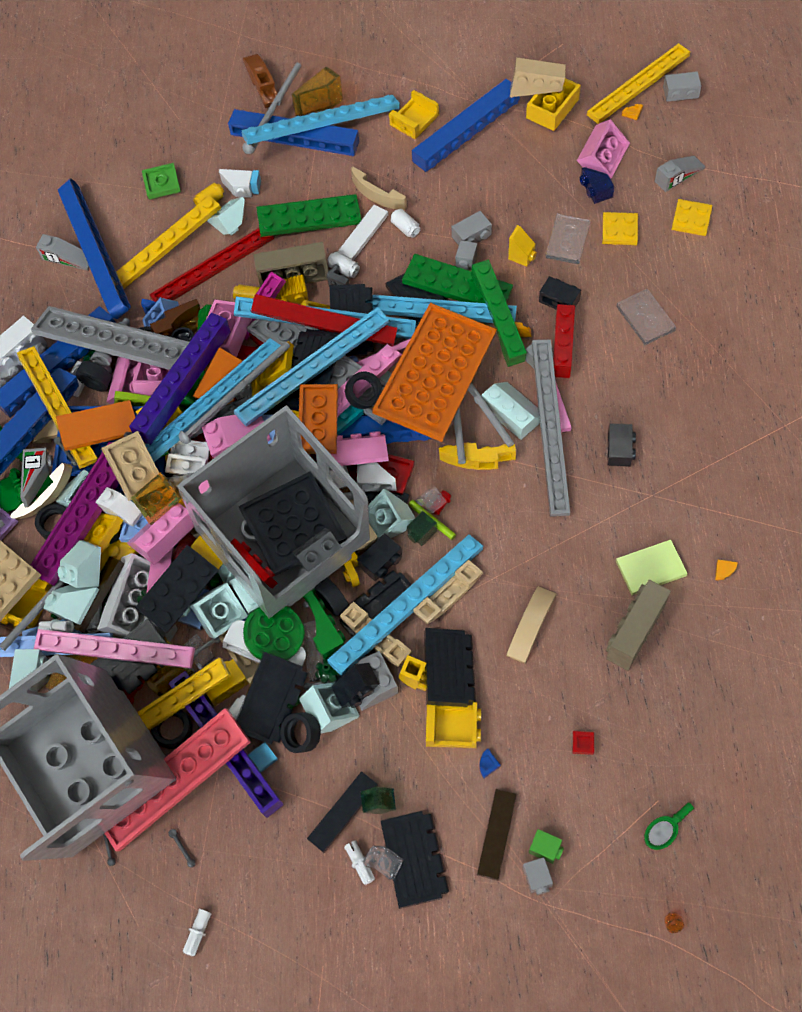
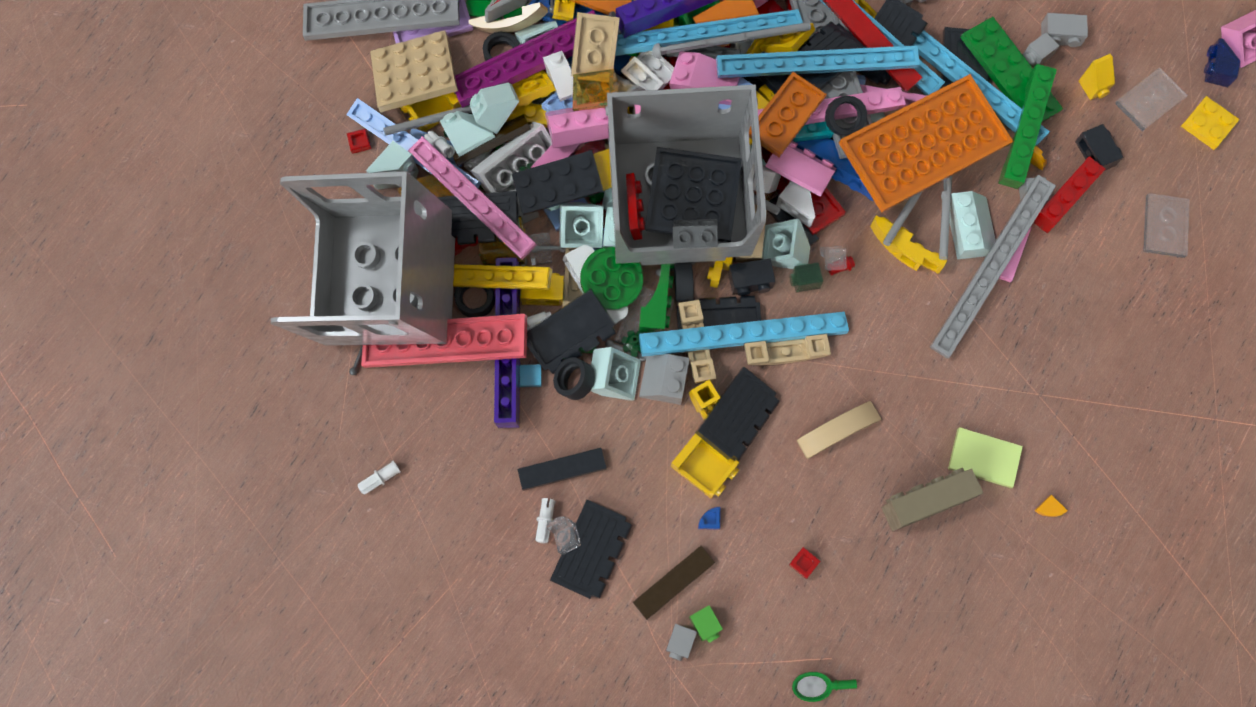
camera: 30 degrees right, 10 degrees up
(173, 834) = (416, 385): dark grey hinge -> none
(355, 685) = (647, 373): black brick -> none
(378, 800) = (596, 482): clear green brick -> none
(440, 526) = (825, 286): lime bar -> none
(621, 445) = (1044, 328): black brick -> none

